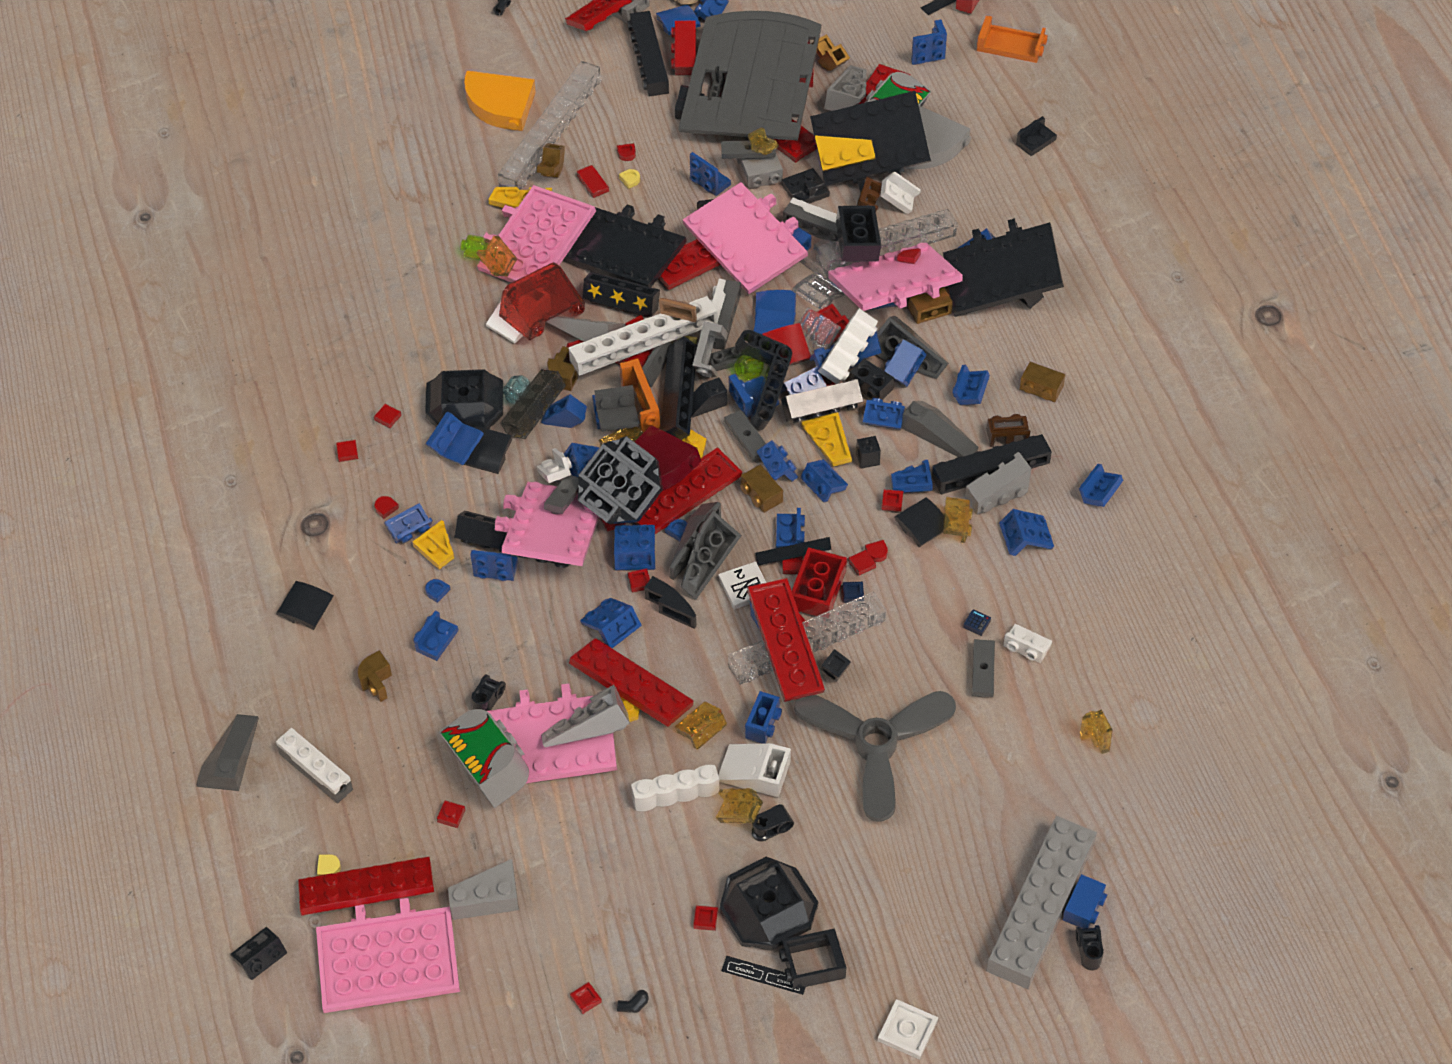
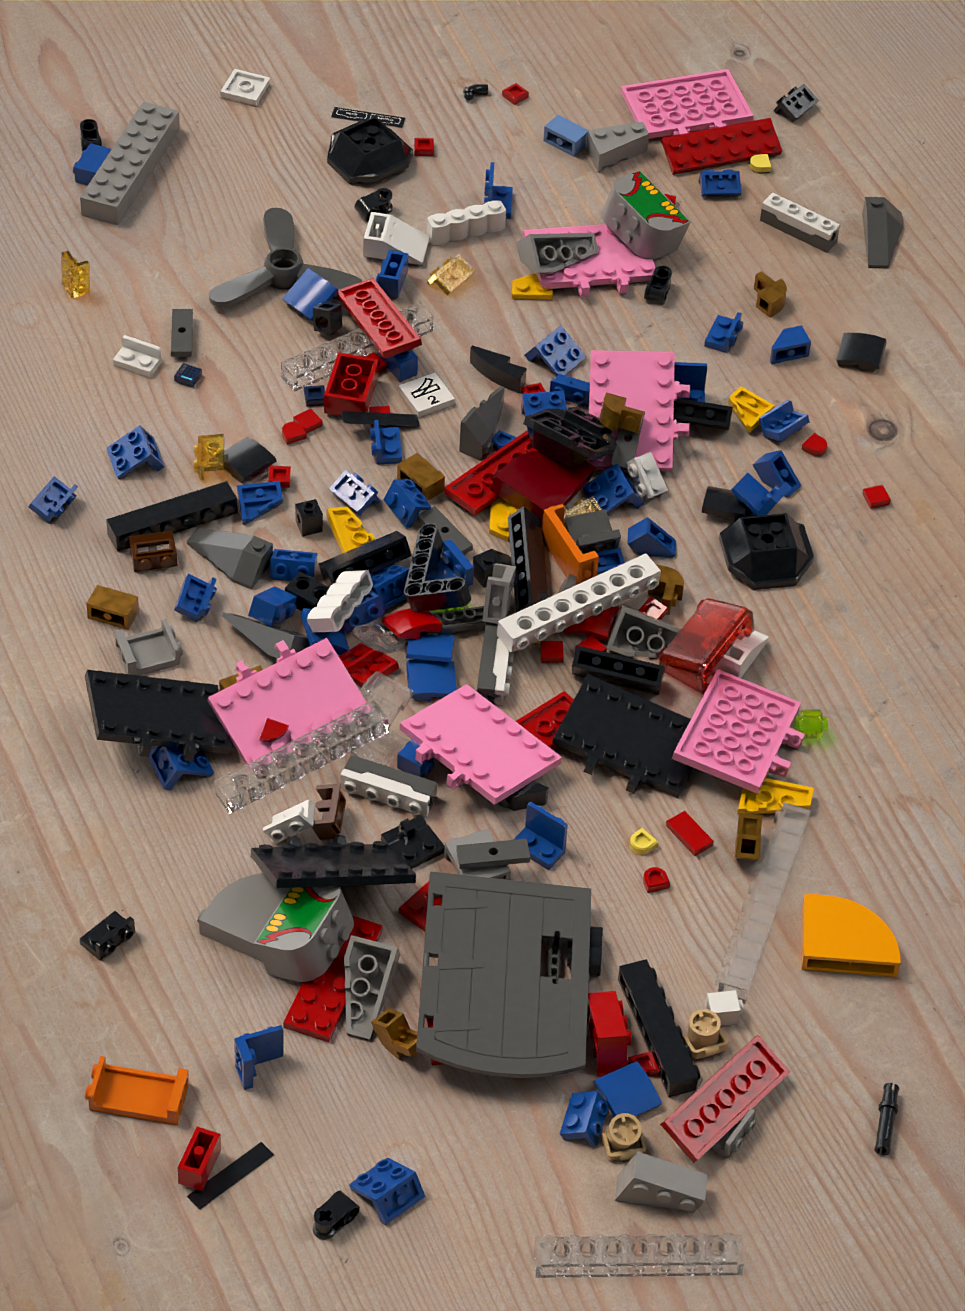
camera: 170 degrees right, 5 degrees down
(375, 611) = (790, 345): none -> blue slope
(383, 833) = (720, 183): none -> blue bracket
(387, 416) = (846, 534): red tile -> none
(433, 472) = (775, 470): none -> blue slope
(437, 589) = (736, 375): blue tile -> none
(497, 257) = (779, 690): clear yellow bracket -> none
(515, 387) = (710, 559): clear light blue head -> none
(533, 404) = (689, 538): clear smoke brick -> none
(540, 914) = (565, 135): none -> medium blue brick
(574, 496) = (617, 415): none -> pearl gold brick
(600, 58) = (726, 1006): none -> white brick
(601, 578) = (574, 389): none -> blue bracket
(617, 47) = (704, 1034): none -> tan piece
(631, 682) = (522, 300): red plate -> none
(633, 825) = (497, 193): none -> blue bracket
(663, 39) = (647, 1062): none -> red tile
(678, 309) = (541, 609): medium nougat slope -> none
(710, 549) = (453, 414): dark grey wedge -> none
(739, 805) = (405, 207): clear yellow bracket -> none
(760, 142) = (473, 840): clear yellow bracket -> none
(807, 942) = (324, 106): black window -> none
(840, 152) = (355, 850): yellow wing -> none
(851, 696) = (309, 292): none -> slope
(858, 233) = (339, 718): black brick -> none
(1000, 486) = (163, 484): light grey wedge -> none
(1012, 346) = (148, 650): none -> light grey panel

